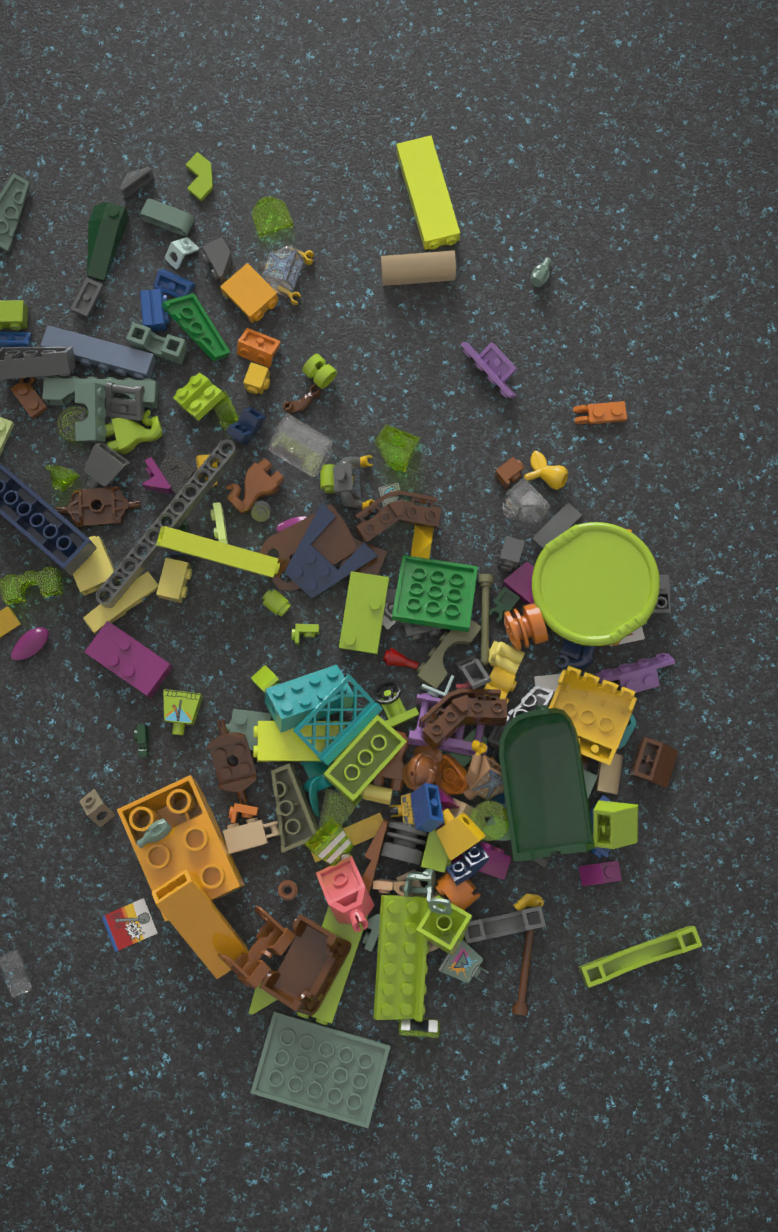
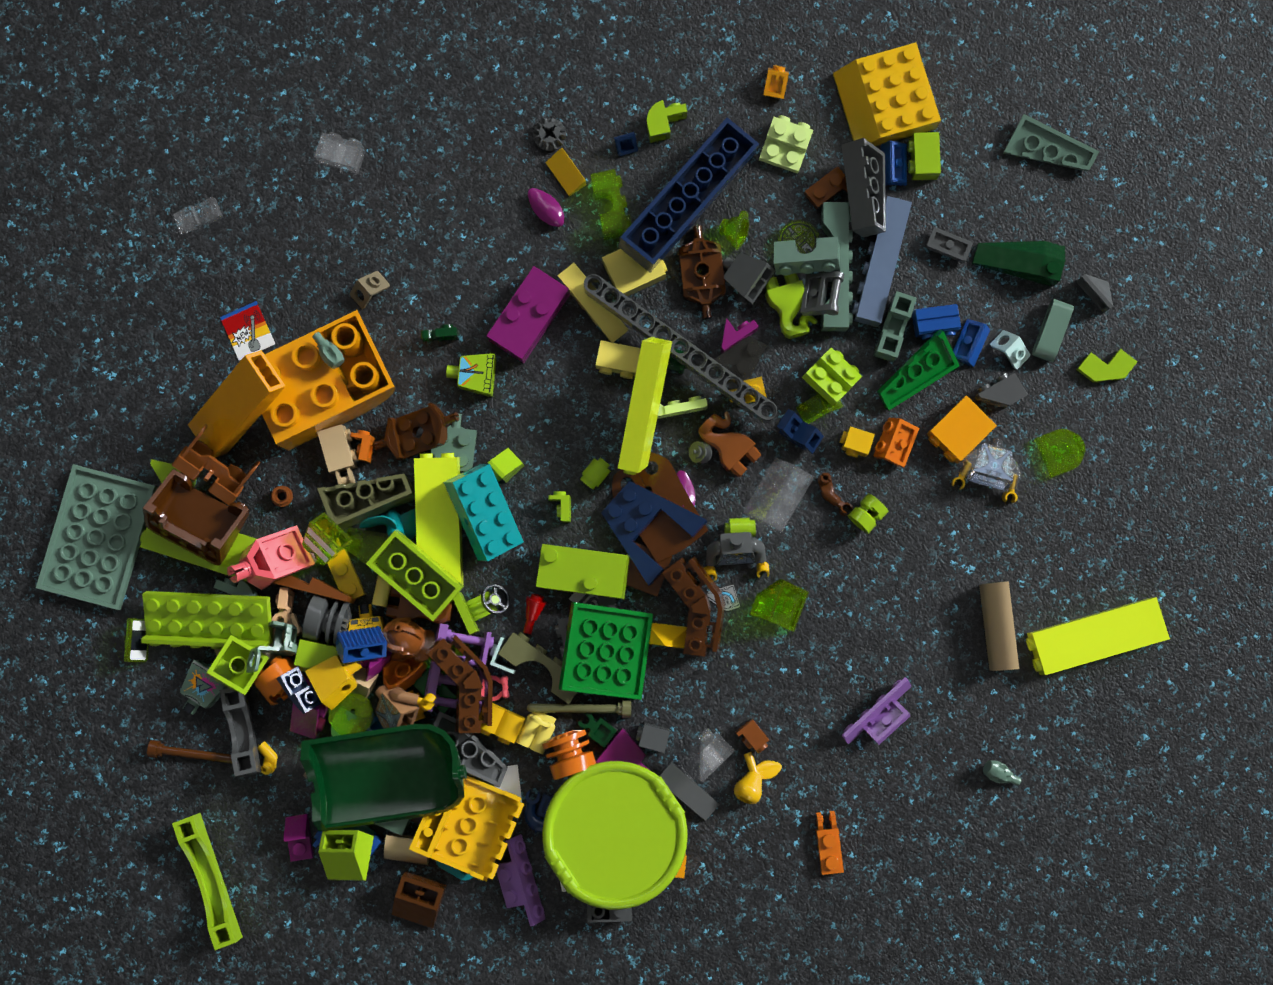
camera: 90 degrees right, 5 degrees up
(346, 734) = (444, 557): teal fence -> none
(473, 672) = (513, 695): dark grey slope -> none

